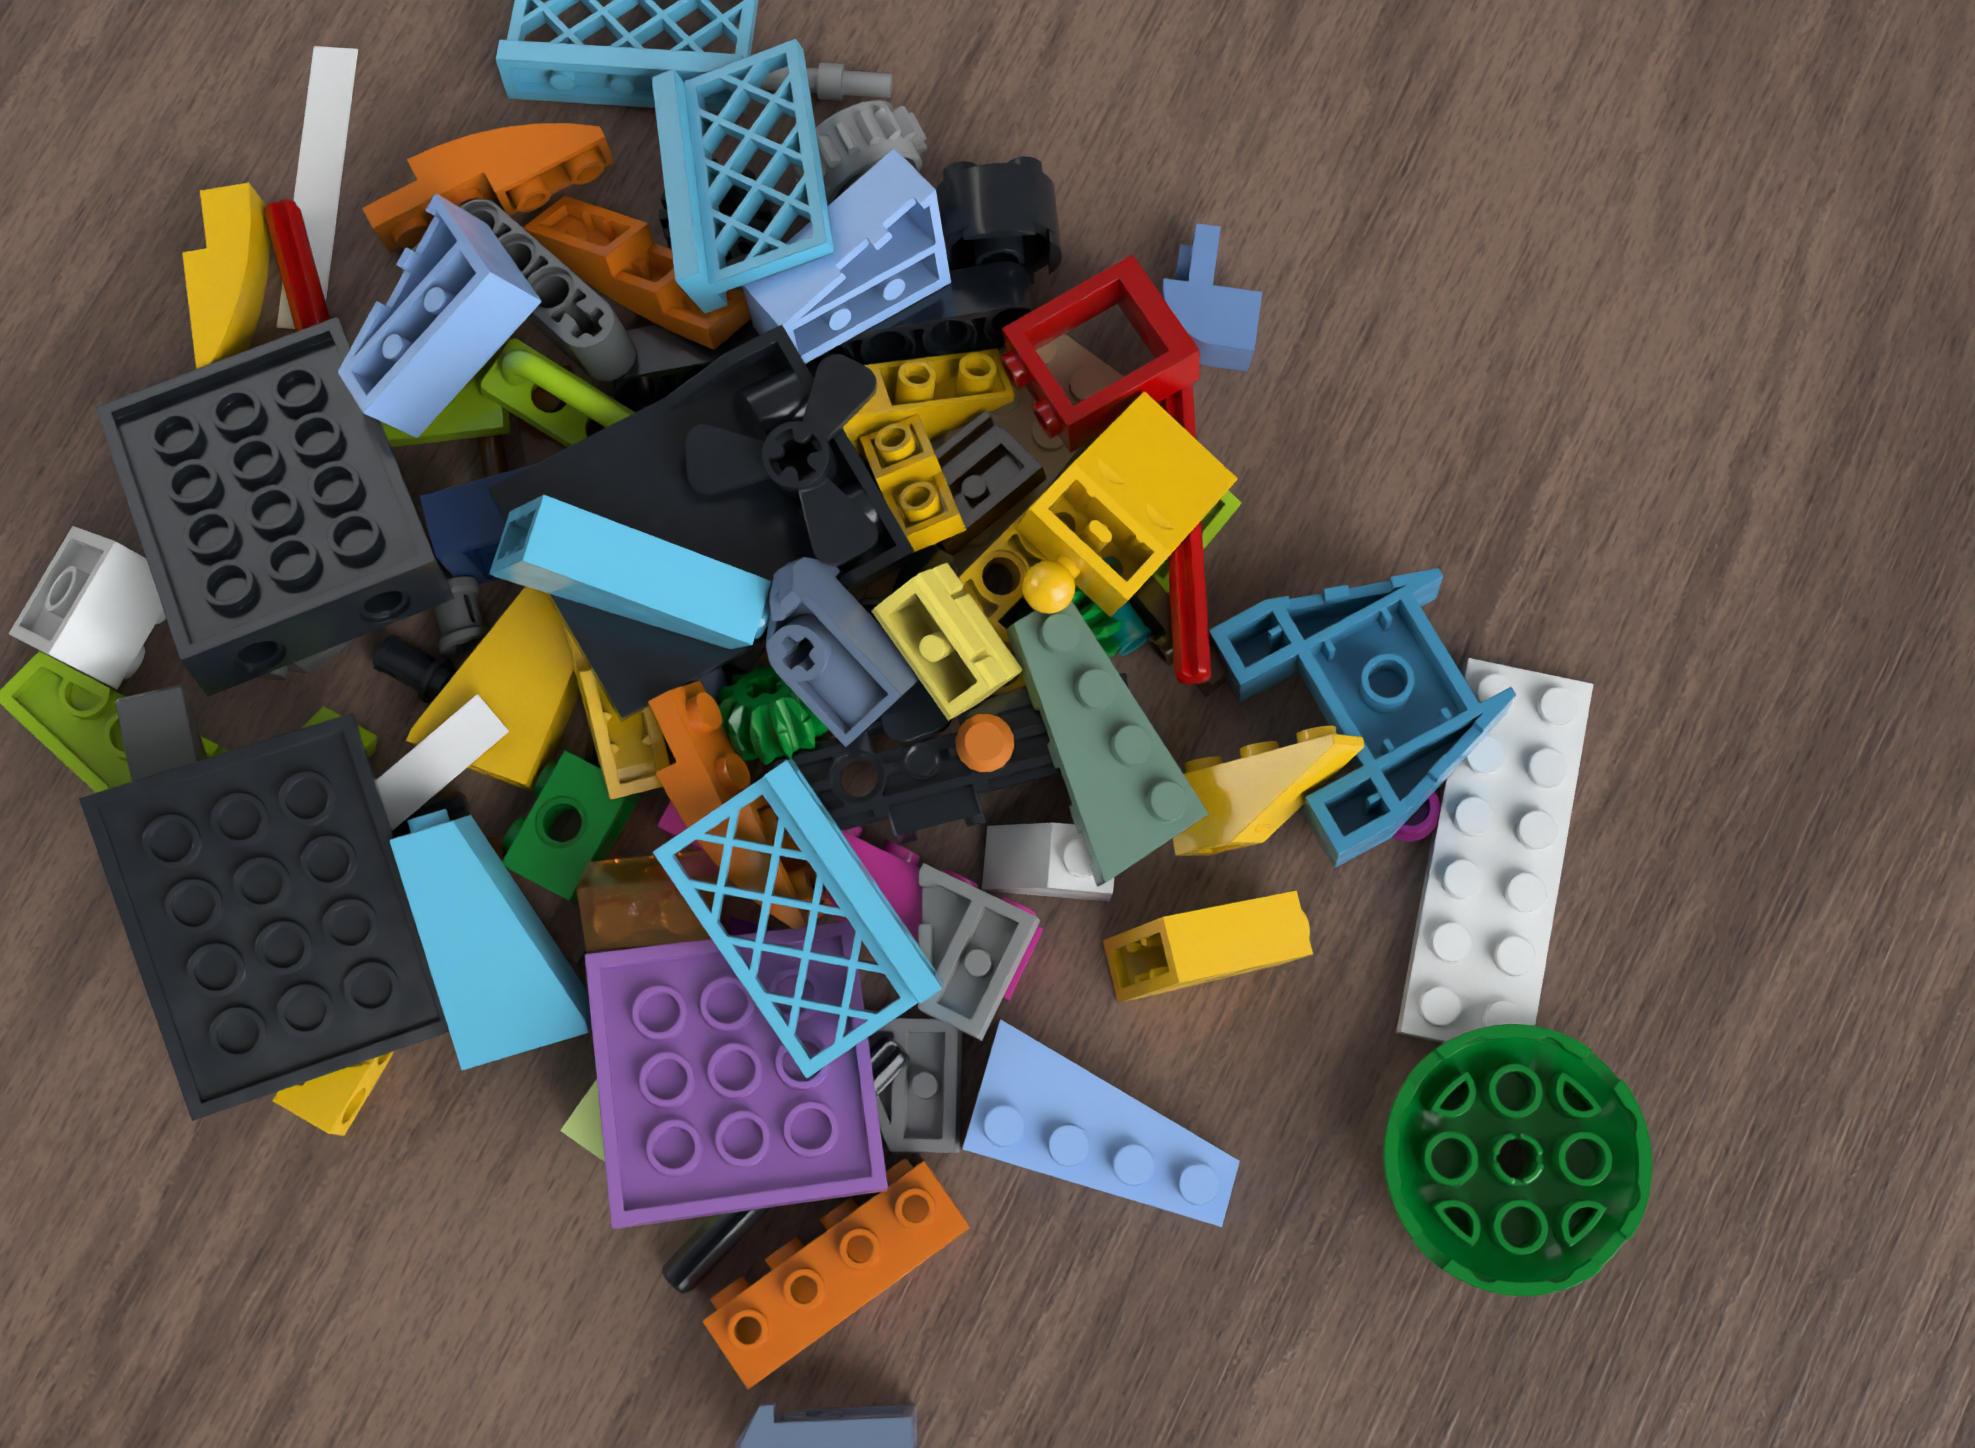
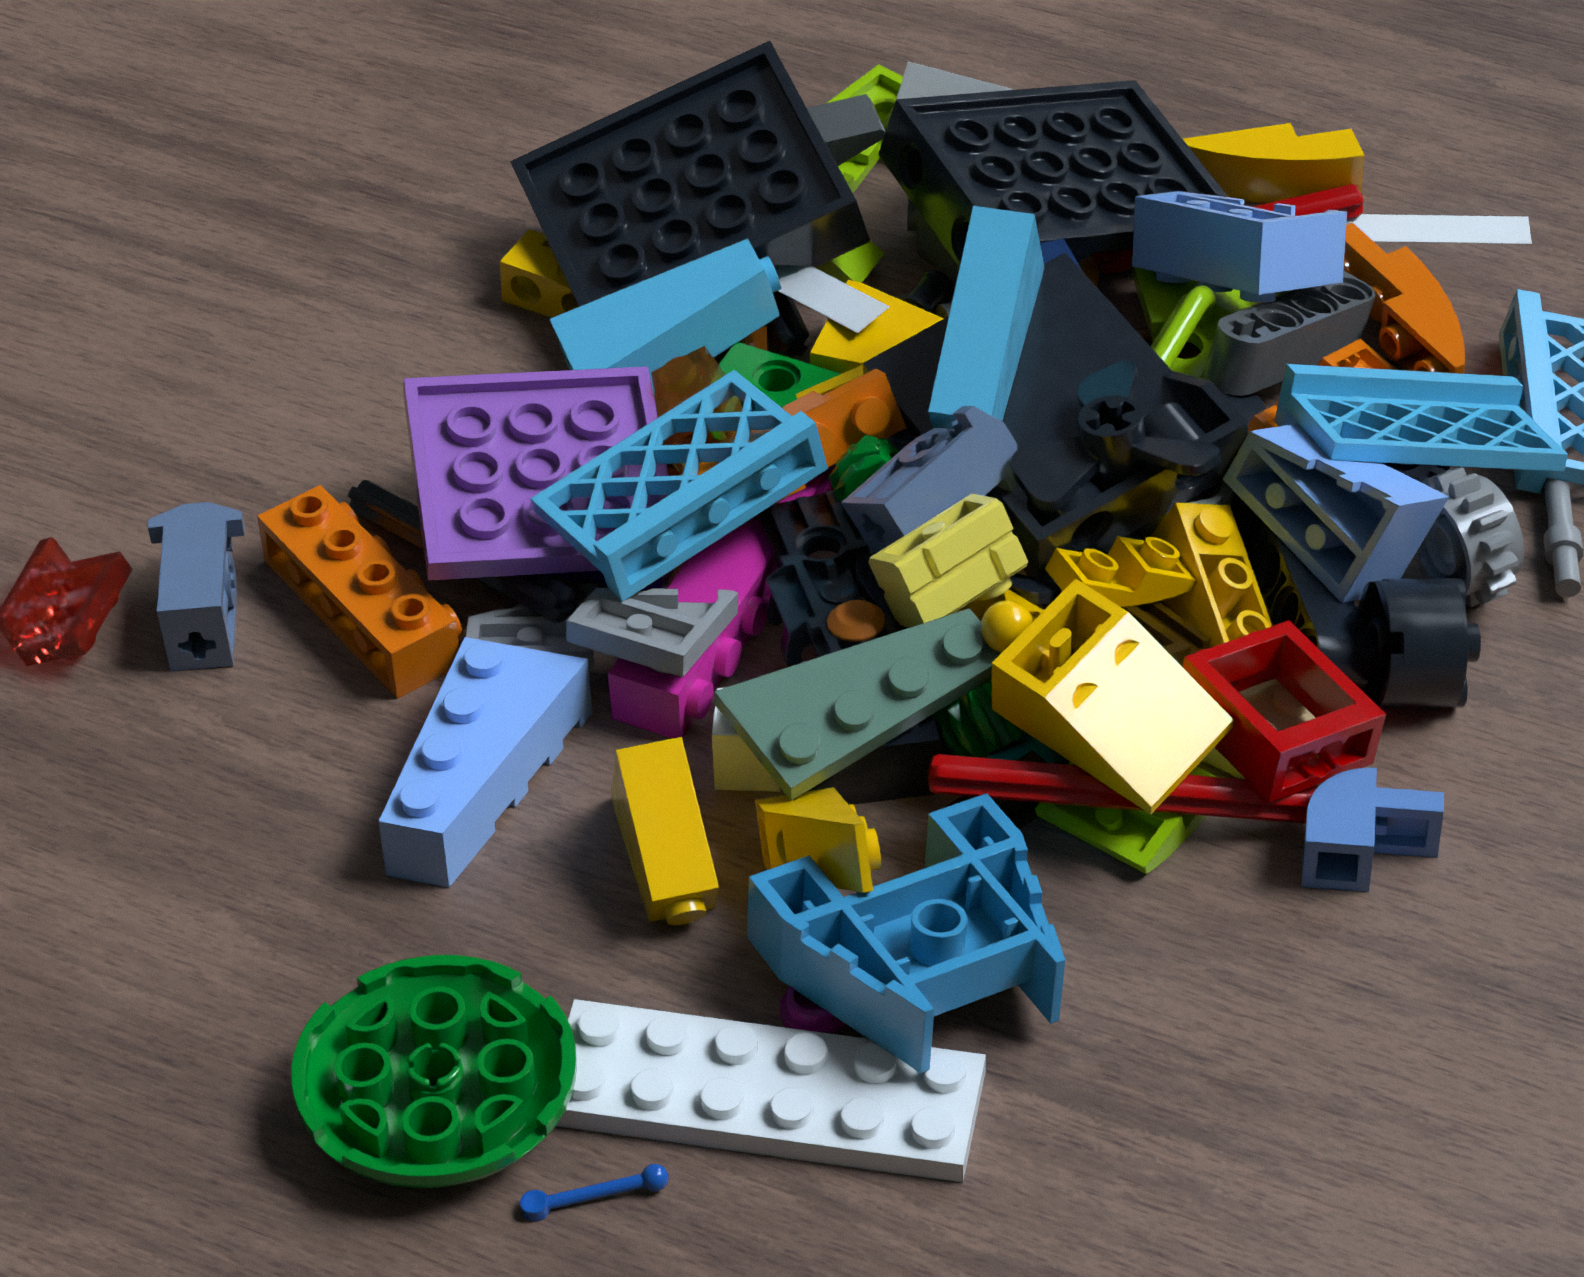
camera: 90 degrees right, 35 degrees down
(1621, 1063) = (536, 1204): none -> blue hinge

